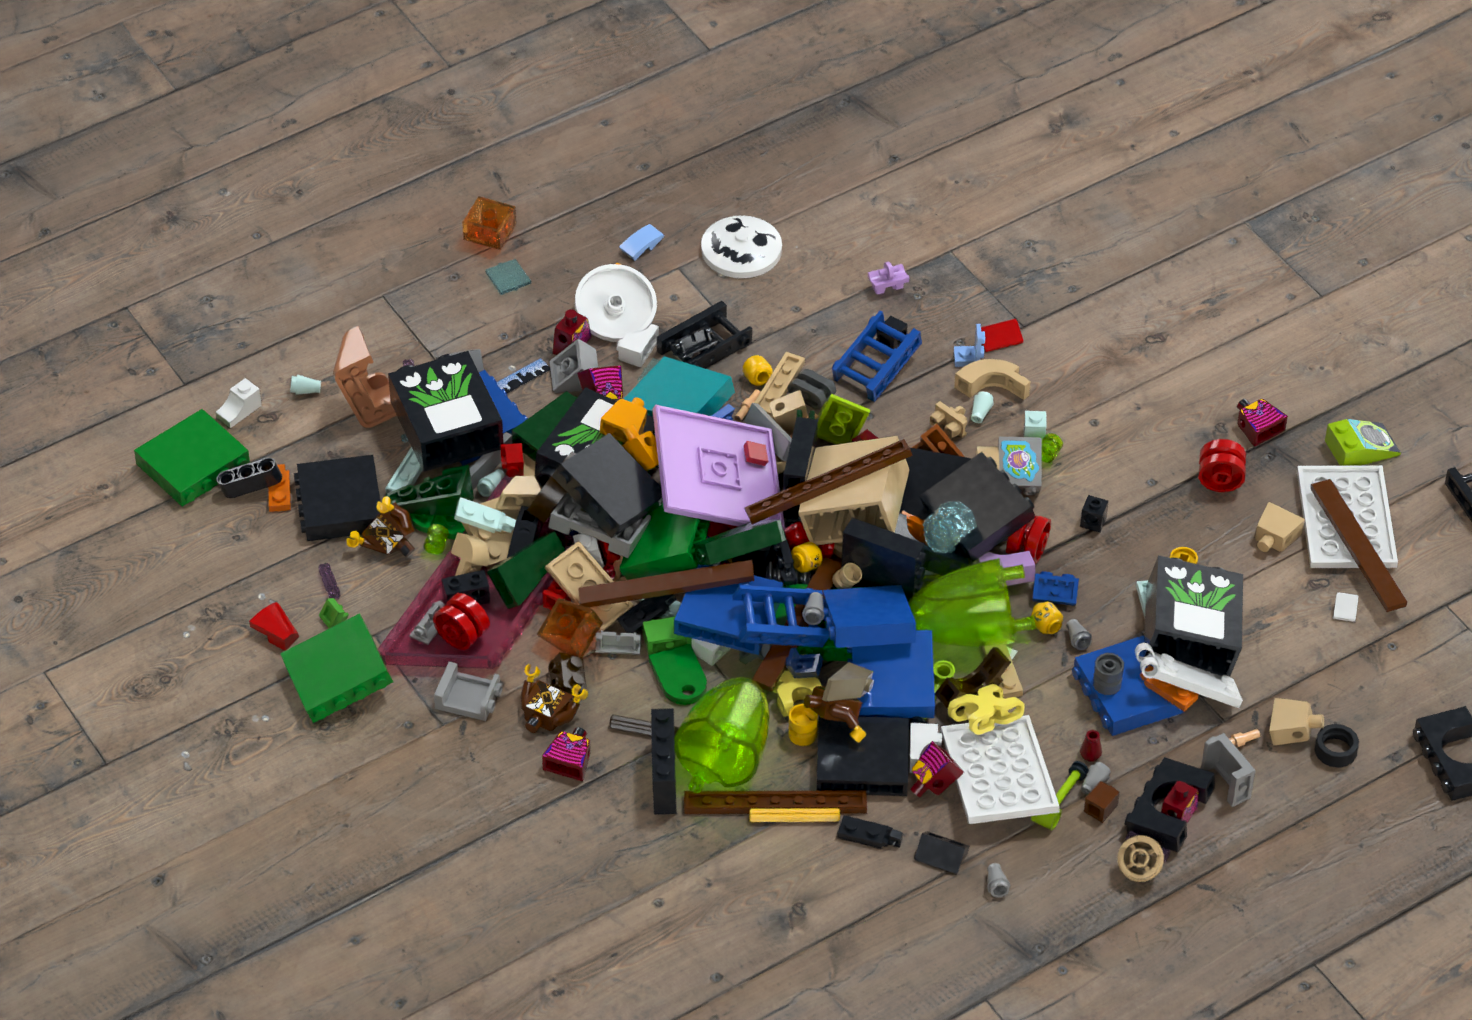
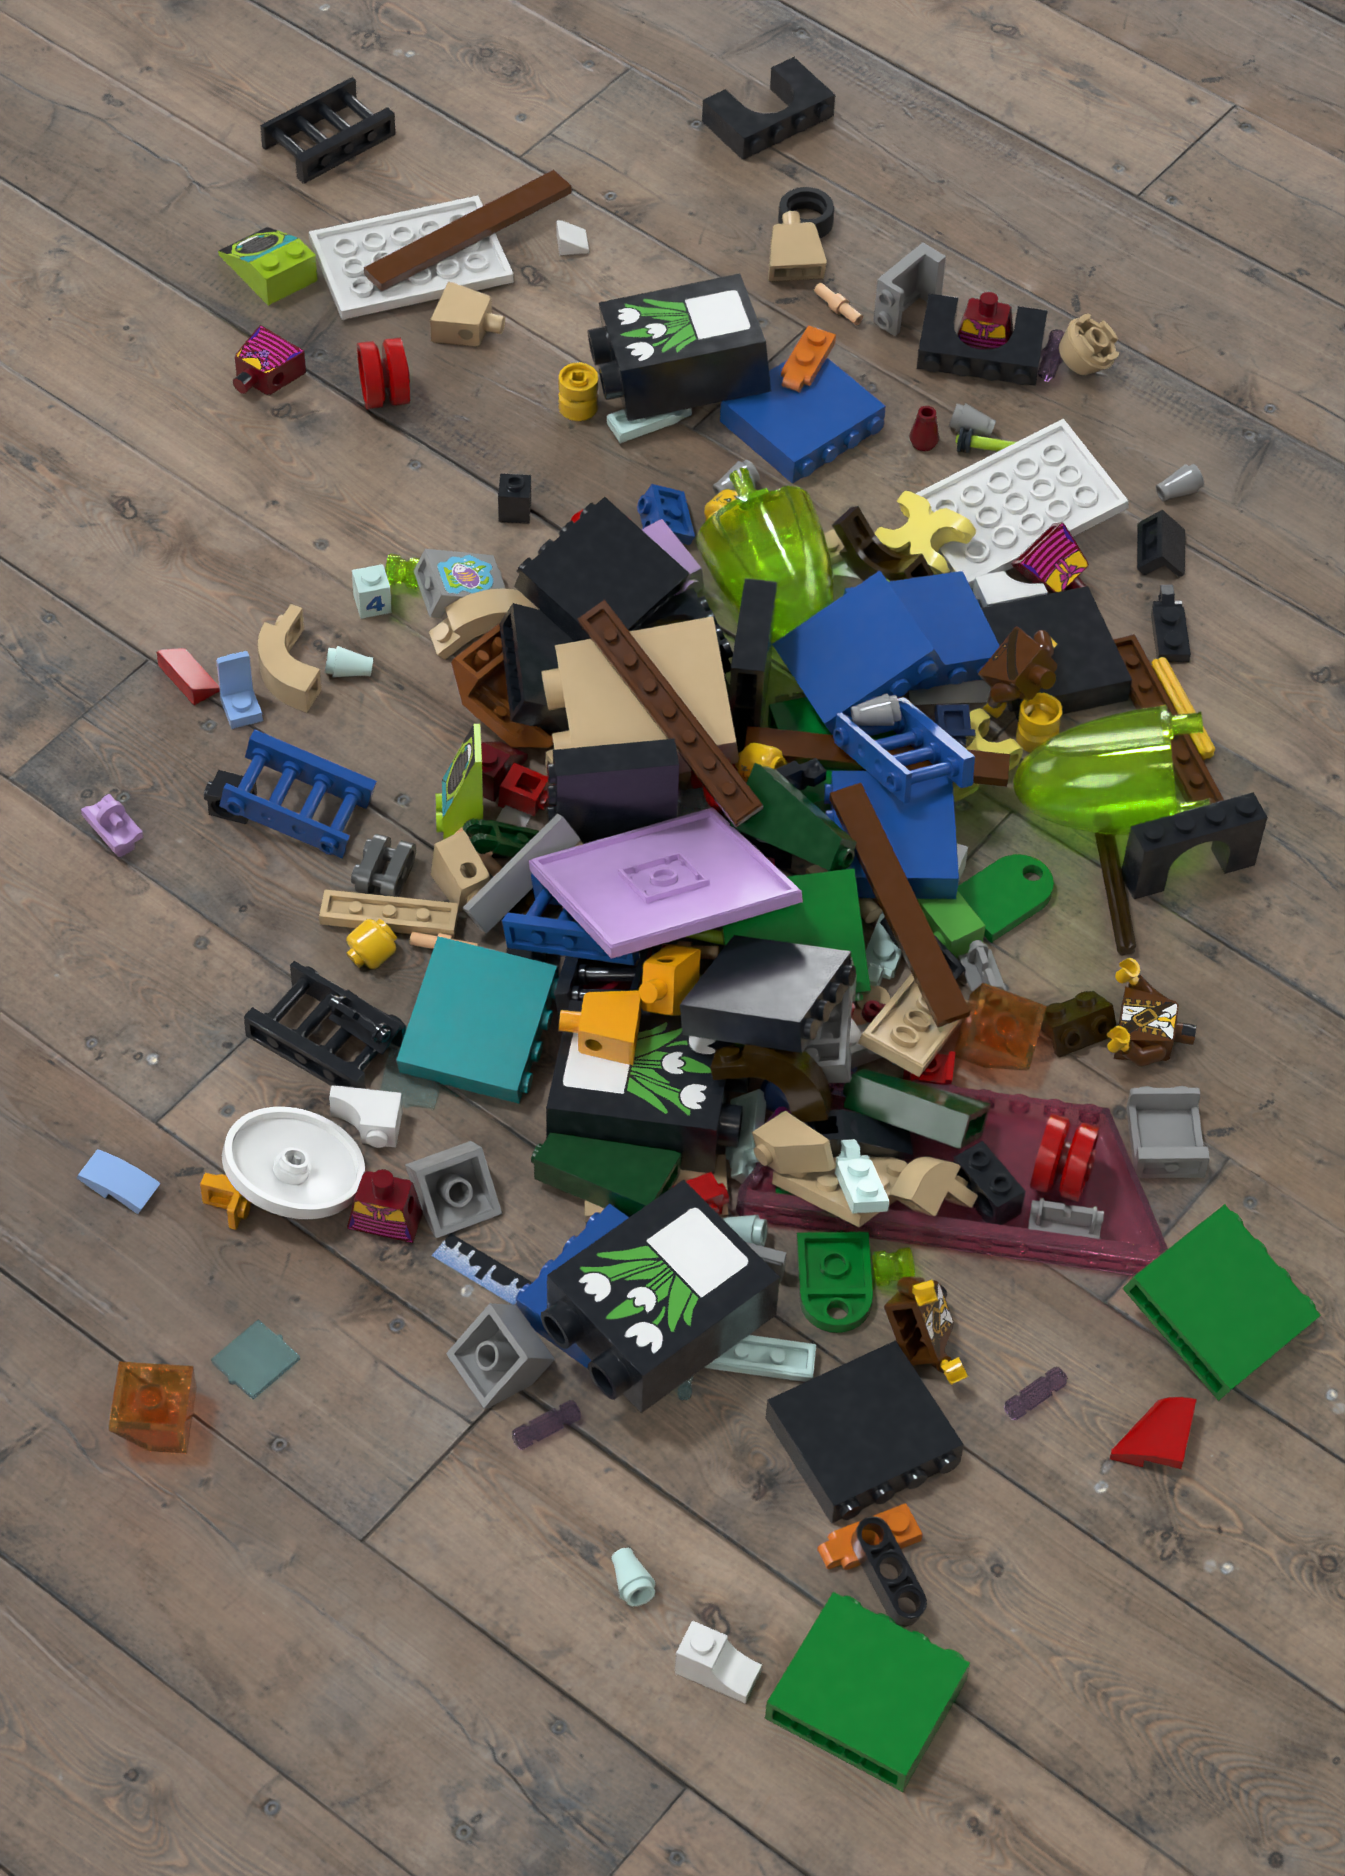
camera: 110 degrees left, 5 degrees up
(332, 613) = (1104, 1359): bright green tile -> none
(365, 394) = (635, 1436): nougat windscreen -> none
(436, 495) = (817, 1285): dark green wedge -> none
(568, 754) = (1216, 976): dark red torso -> none
(603, 381) = (507, 1124): torso -> none
(741, 246) = (84, 1044): white dish -> none
(755, 453) = (599, 856): tile -> none
(847, 576) = (779, 709): tan wheel -> none
(848, 683) = (1001, 638): dark tan slope -> none
(948, 525) = (676, 581): clear light blue hair -> none
(951, 418) = (384, 689): tan hips -> none
(1101, 801) = (1007, 405): reddish brown brick -> none
(1108, 673) = (825, 407): dark grey wheel -> none
(1189, 677) = (790, 335): white hinge -> none

